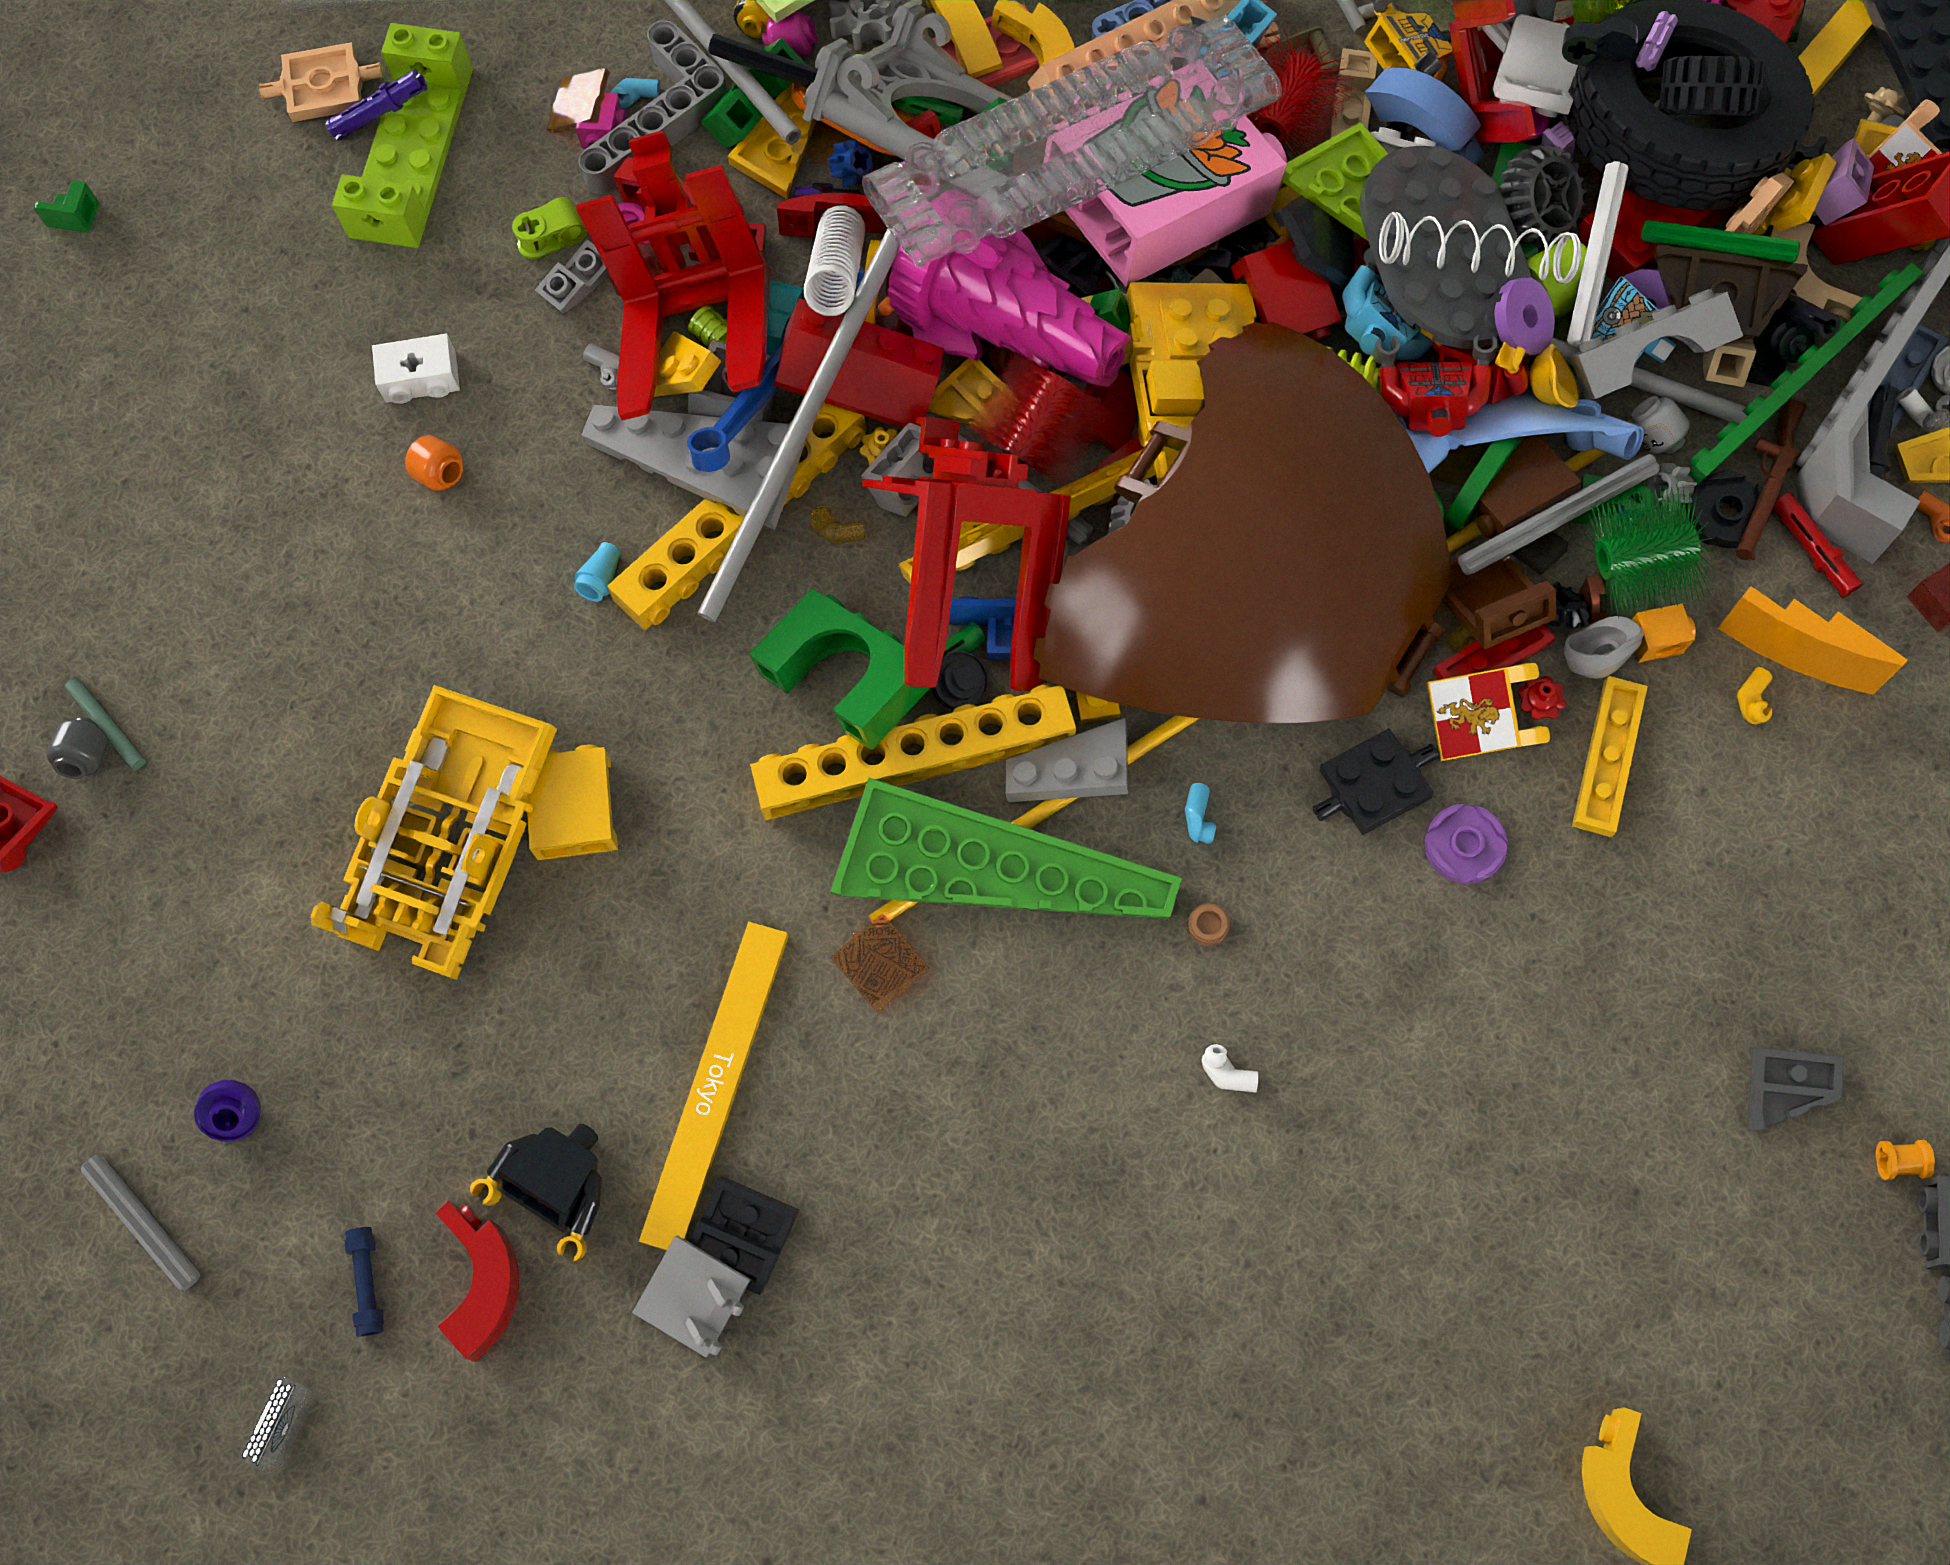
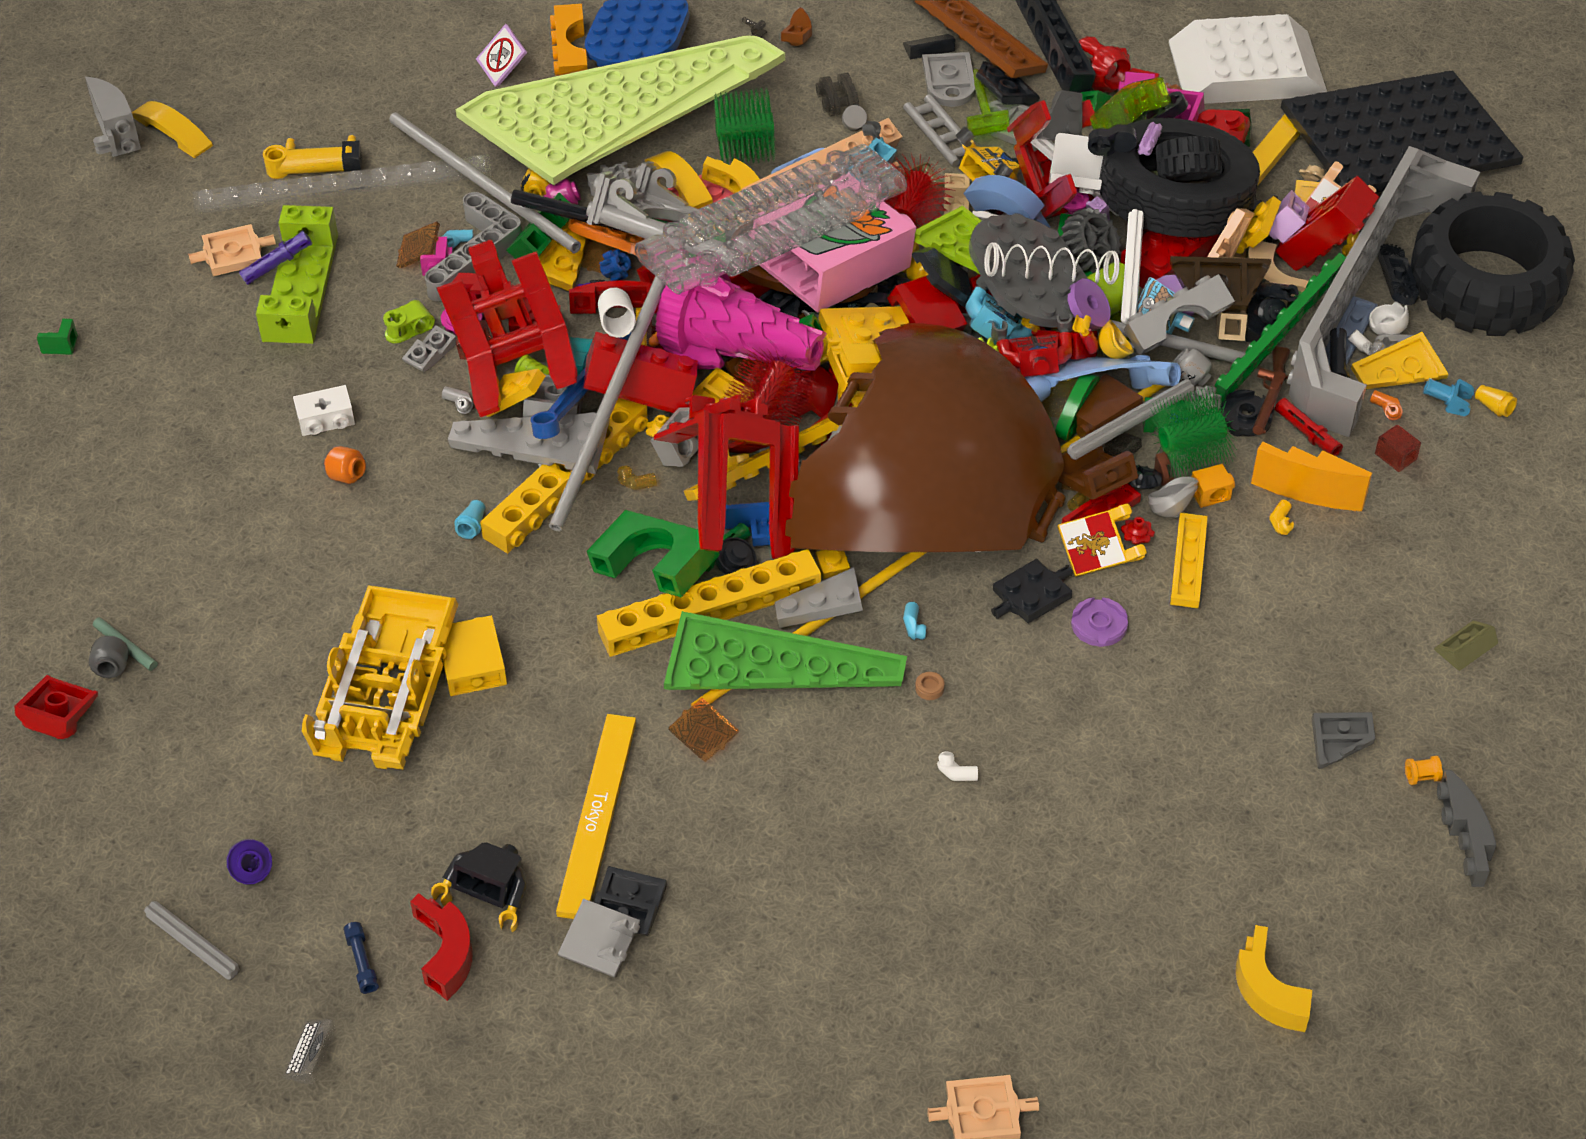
camera: 10 degrees left, 20 degrees down
(1720, 241) = (1224, 250): green axle -> none

